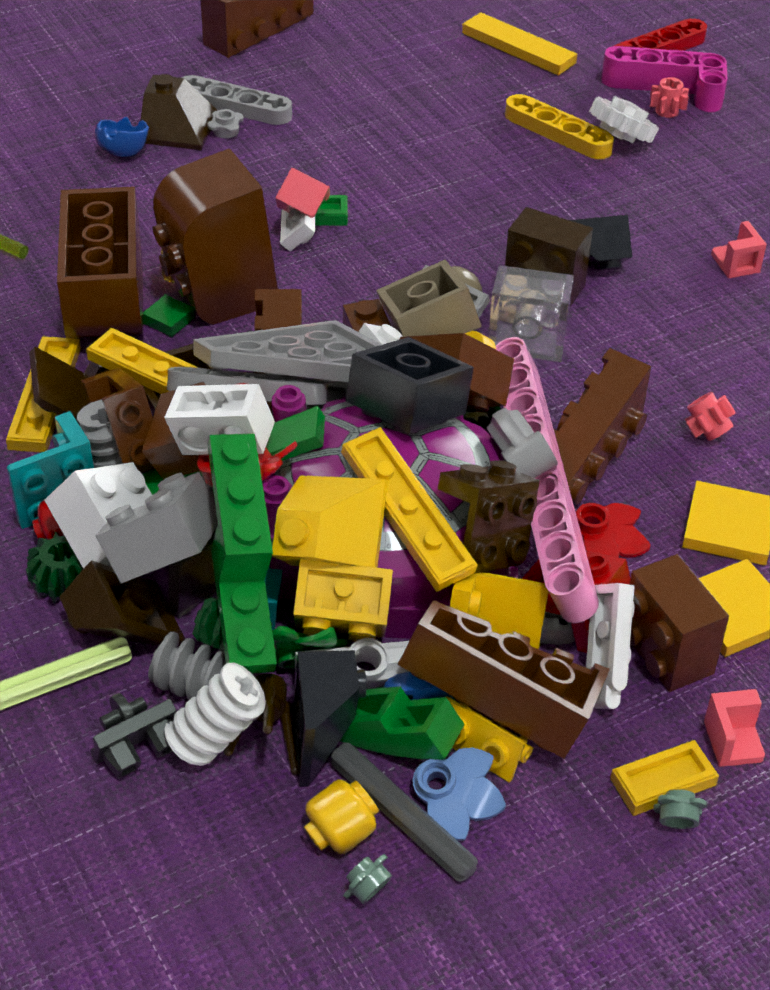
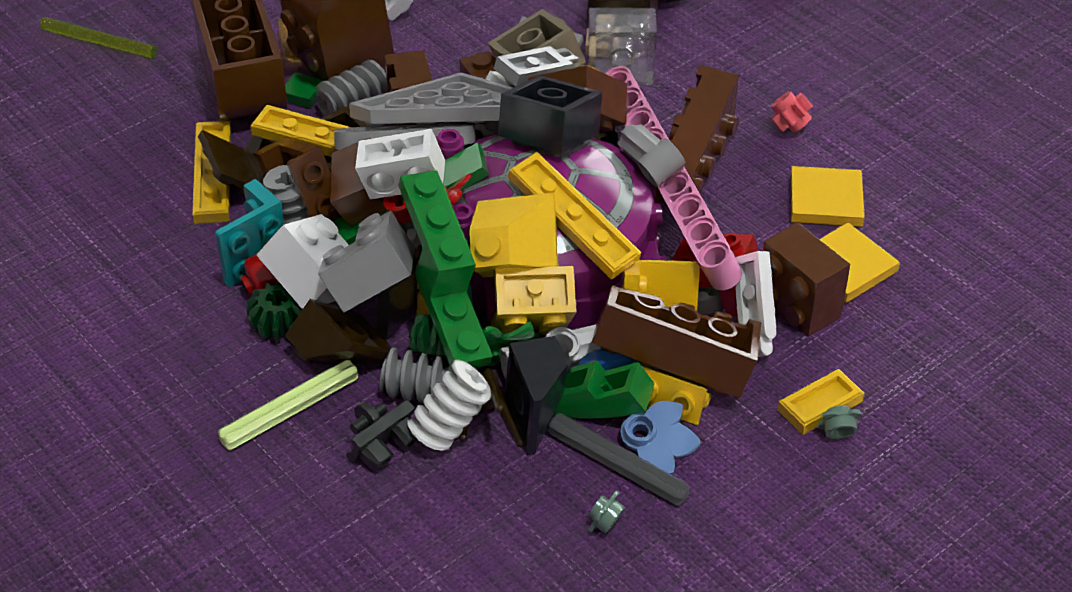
camera: 10 degrees left, 0 degrees up
(217, 318) = (351, 86): none -> light grey piece
(340, 816) = (571, 469): yellow head -> none
(416, 320) = (525, 64): none -> light grey hinge
(498, 514) = (649, 207): dark brown bracket -> none
(611, 529) = (733, 214): red plate -> none
(732, 728) = (865, 354): coral panel -> none

